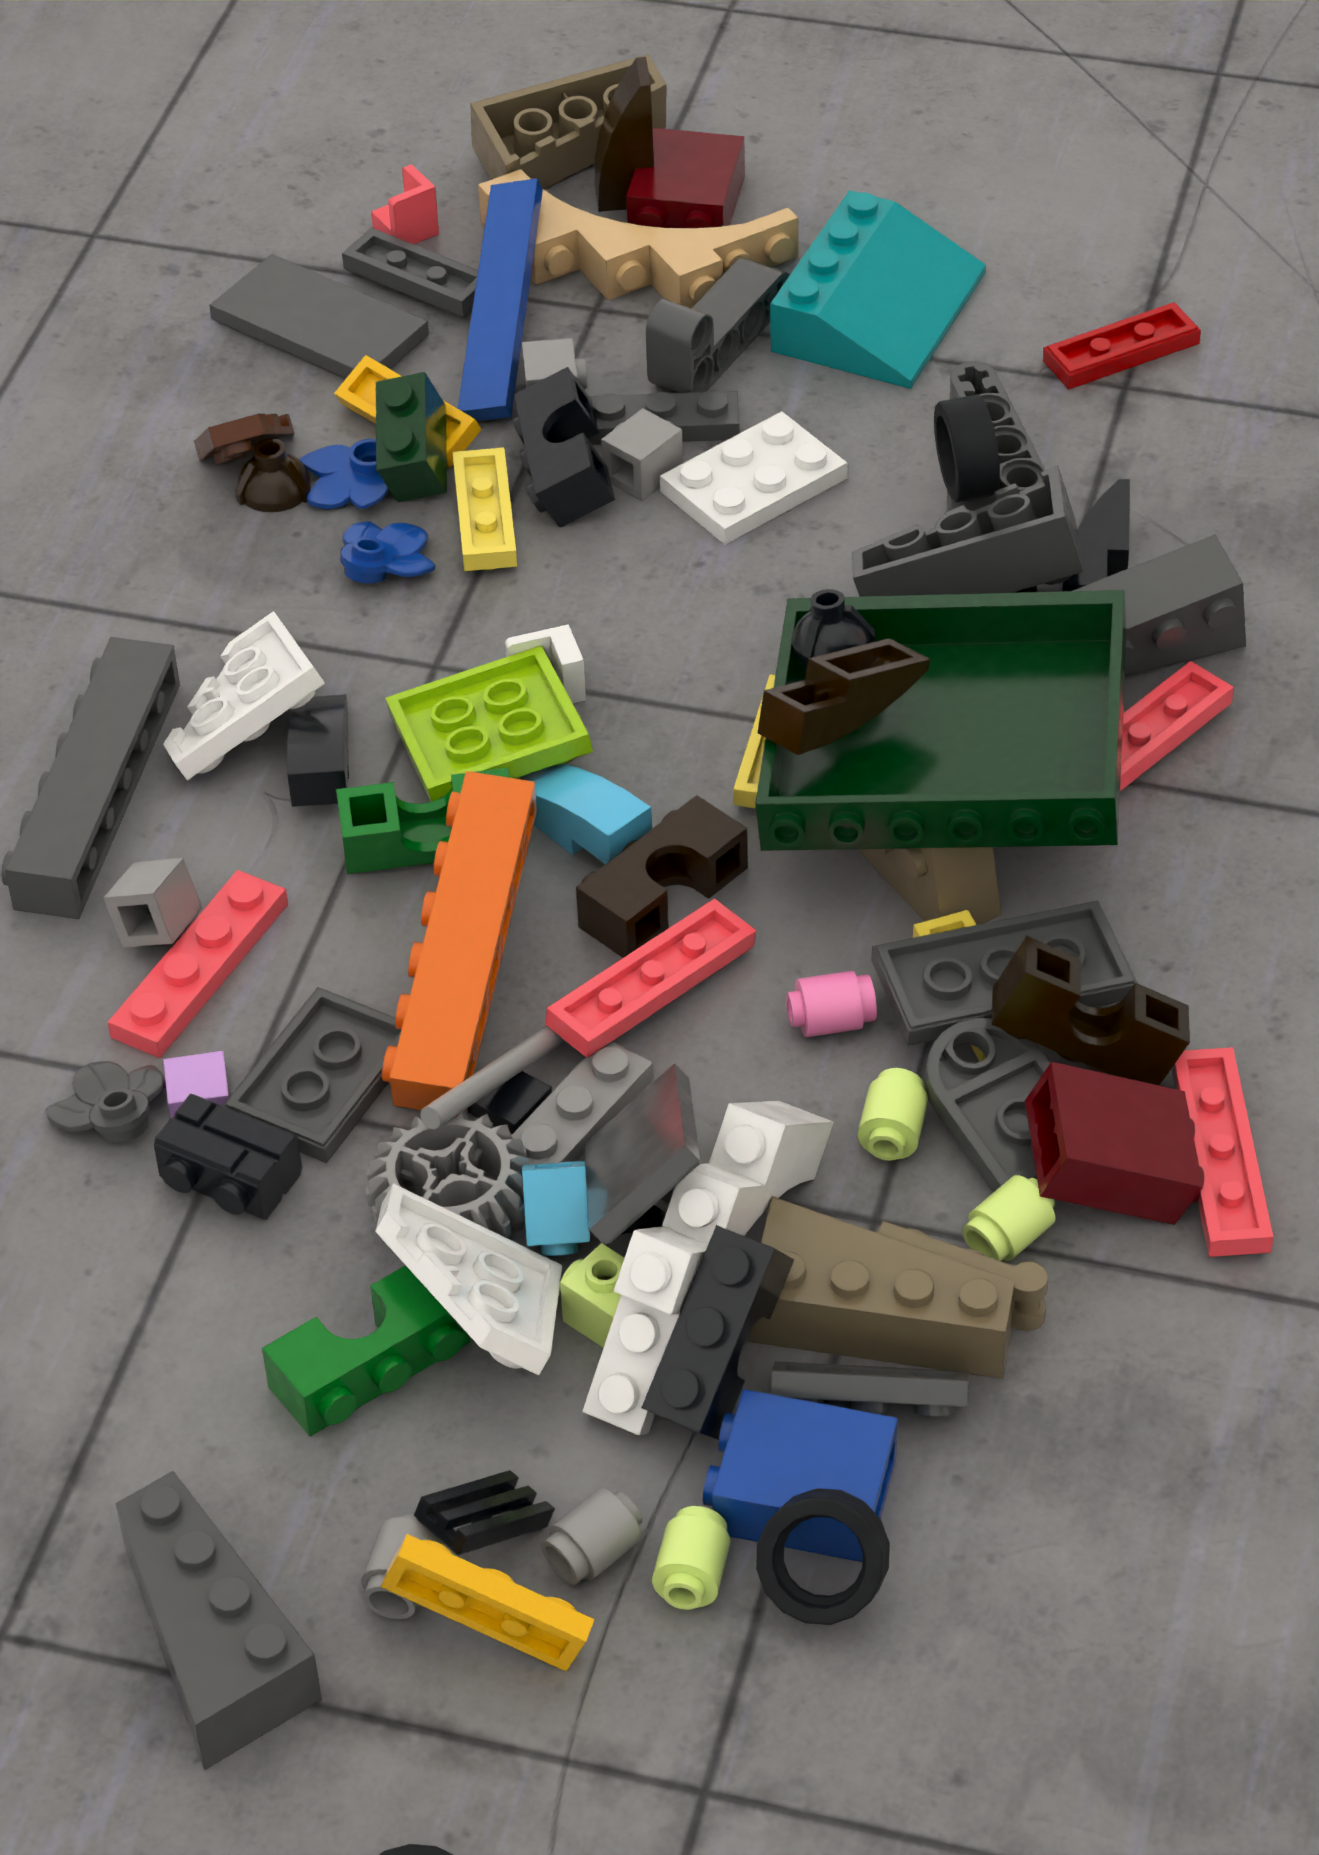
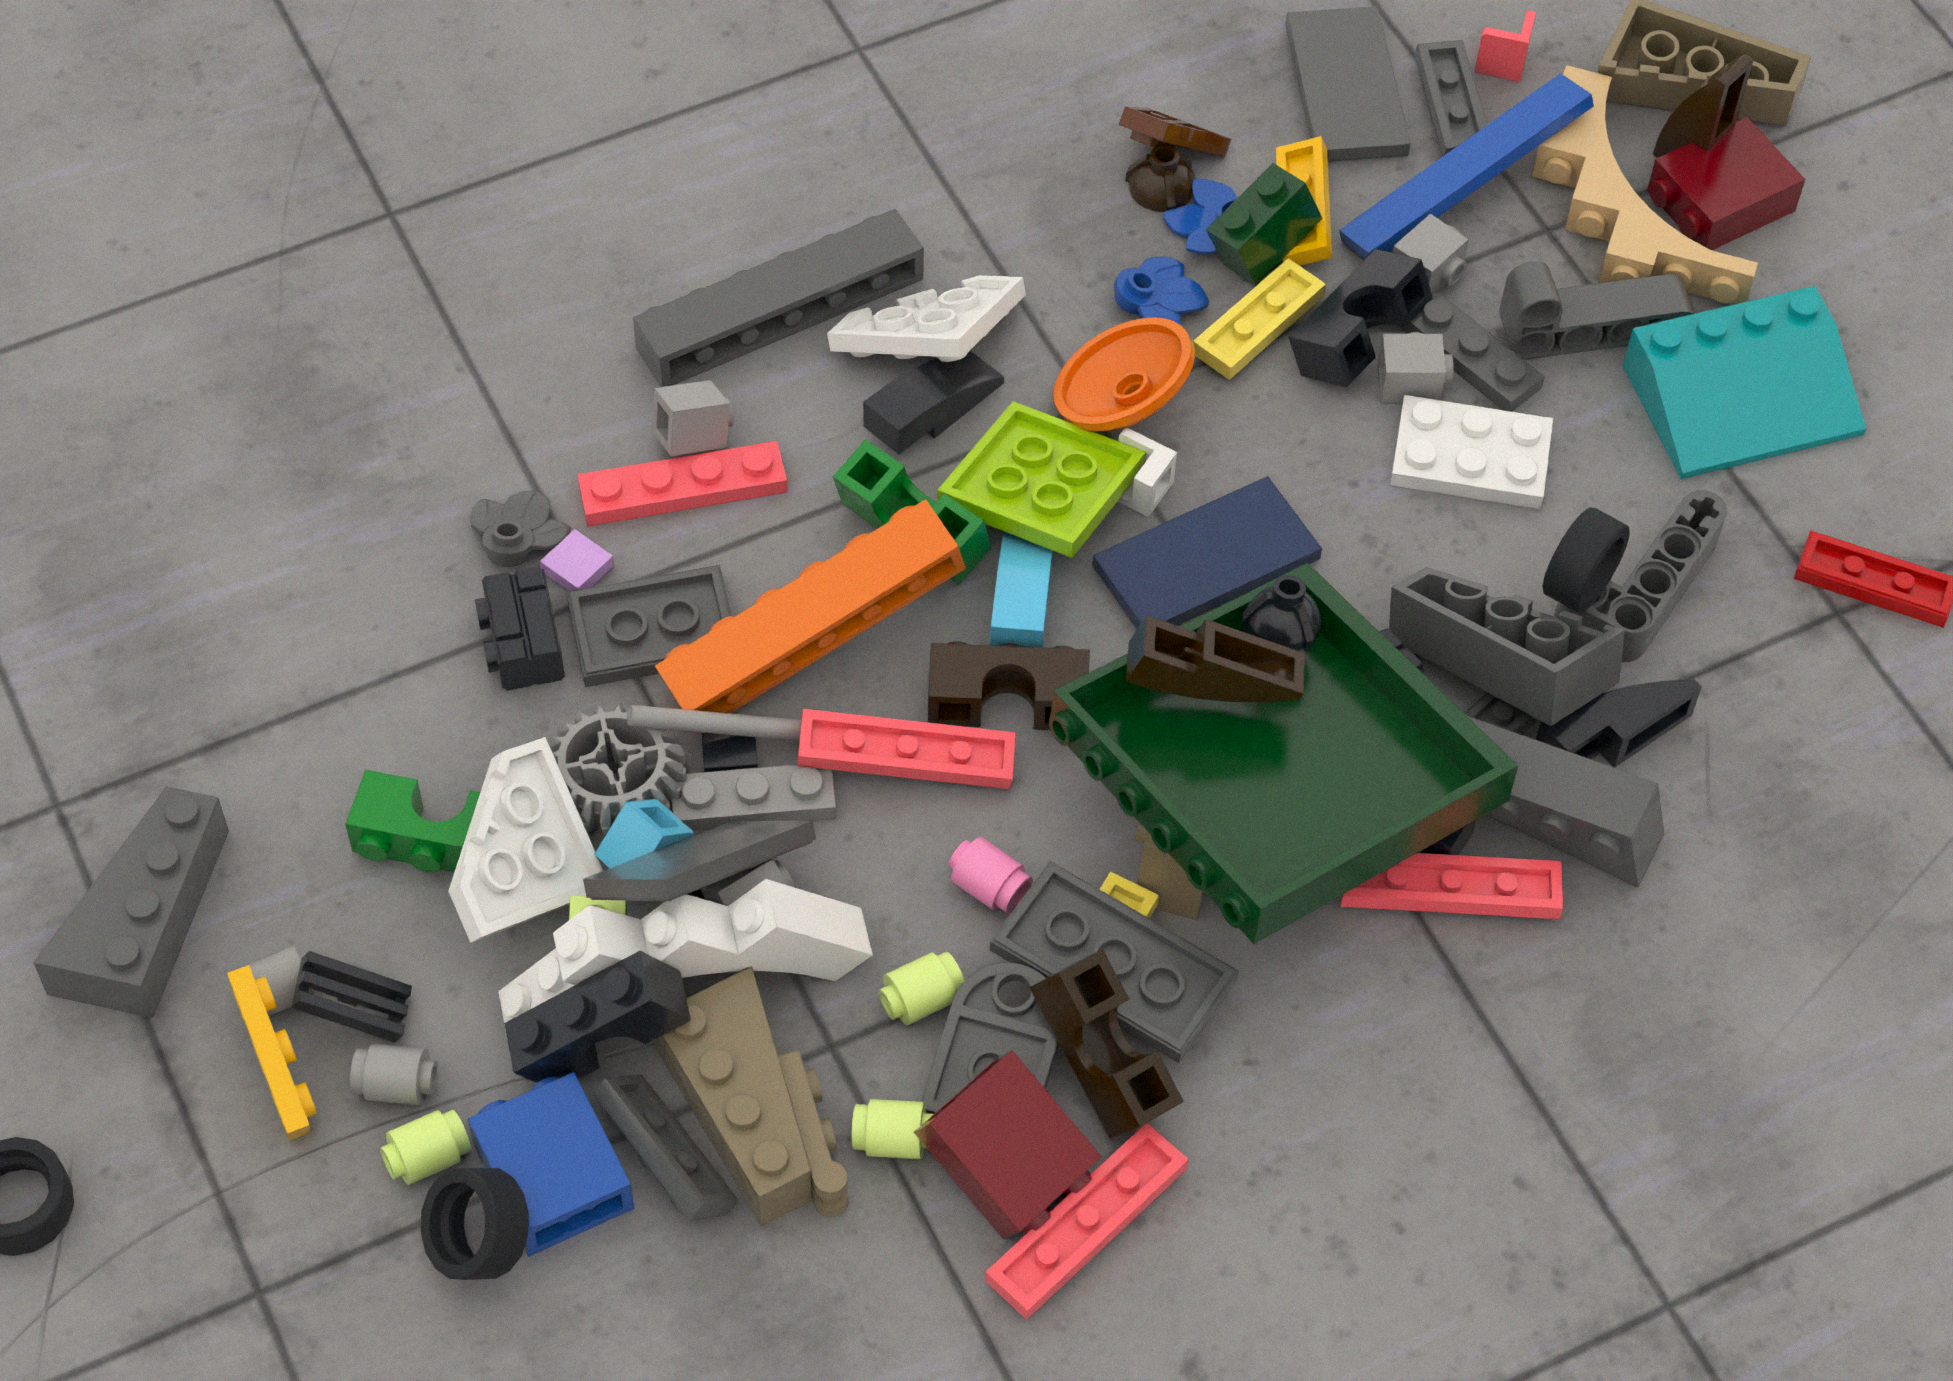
camera: 45 degrees right, 10 degrees up
(452, 608) = (1124, 374): none -> orange dish
(670, 688) = (1207, 555): none -> dark blue tile

